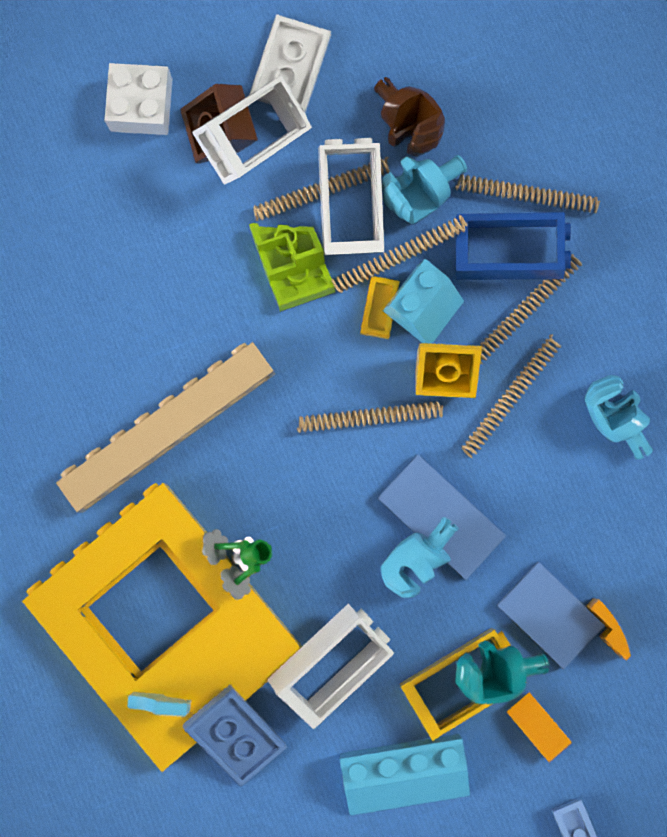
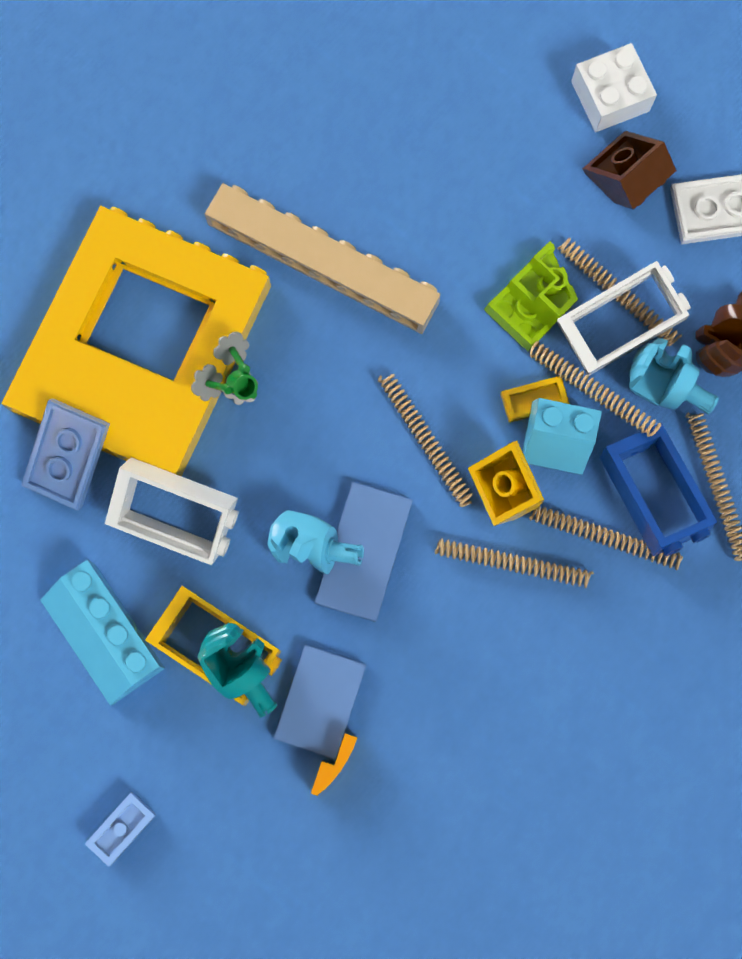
camera: 60 degrees right, 5 degrees down
(159, 704) = (60, 364): medium azure tile -> none
(221, 152) = (603, 169): white window -> none
(539, 727) = (206, 741): light orange slope -> none
(618, 419) = (542, 674): medium azure piece -> none

